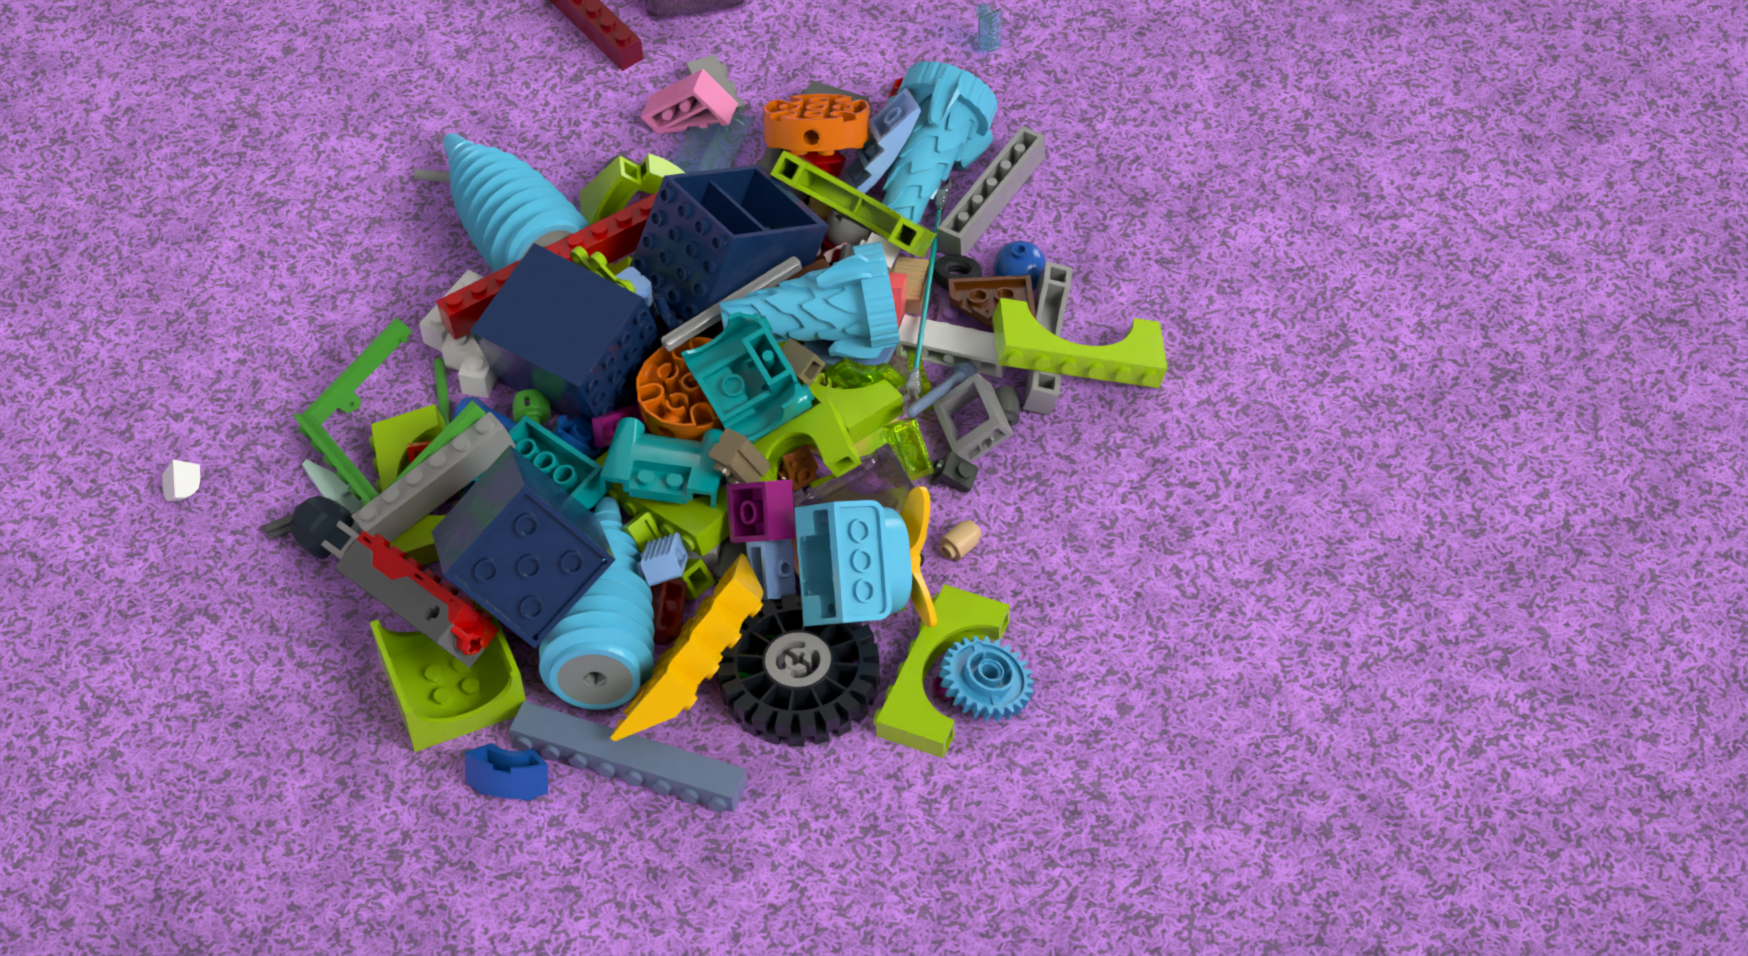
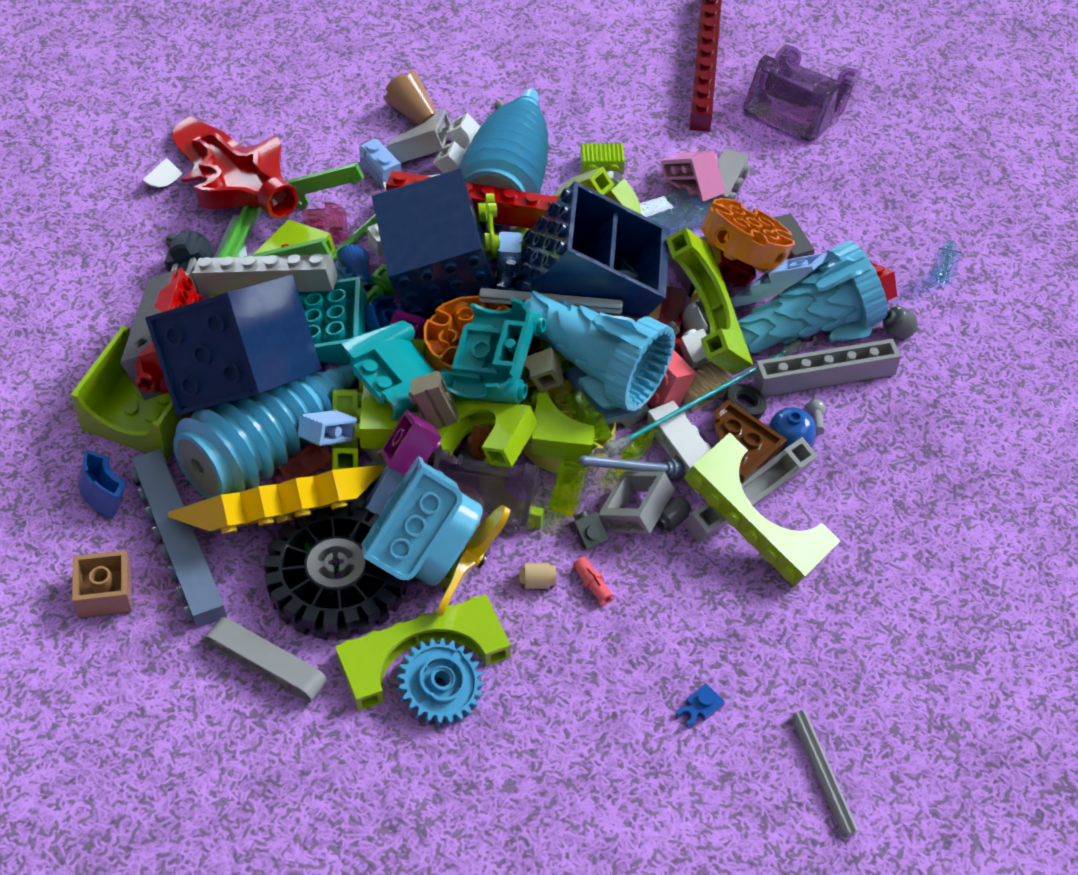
camera: 40 degrees right, 0 degrees up
(275, 414) = (234, 172): none -> red piece
(341, 230) = (410, 97): none -> medium nougat cone
(378, 309) = (378, 161): none -> light blue brick
(400, 260) = (421, 140): none -> light grey arch
(405, 394) = (331, 218): none -> clear pink brick
(448, 250) = (461, 133): none -> white arch
(582, 155) = (598, 155): none -> lime brick
(619, 842) = (102, 584): none -> medium nougat brick
(825, 781) = (266, 658): none -> light grey beam
(1006, 509) = (593, 581): none -> coral pin
(1009, 110) = (900, 322): none -> dark grey head
(1016, 233) = (817, 409): none -> light grey bar
(1193, 530) = (701, 703): none -> blue plate
(1333, 503) = (824, 774): none -> light grey axle

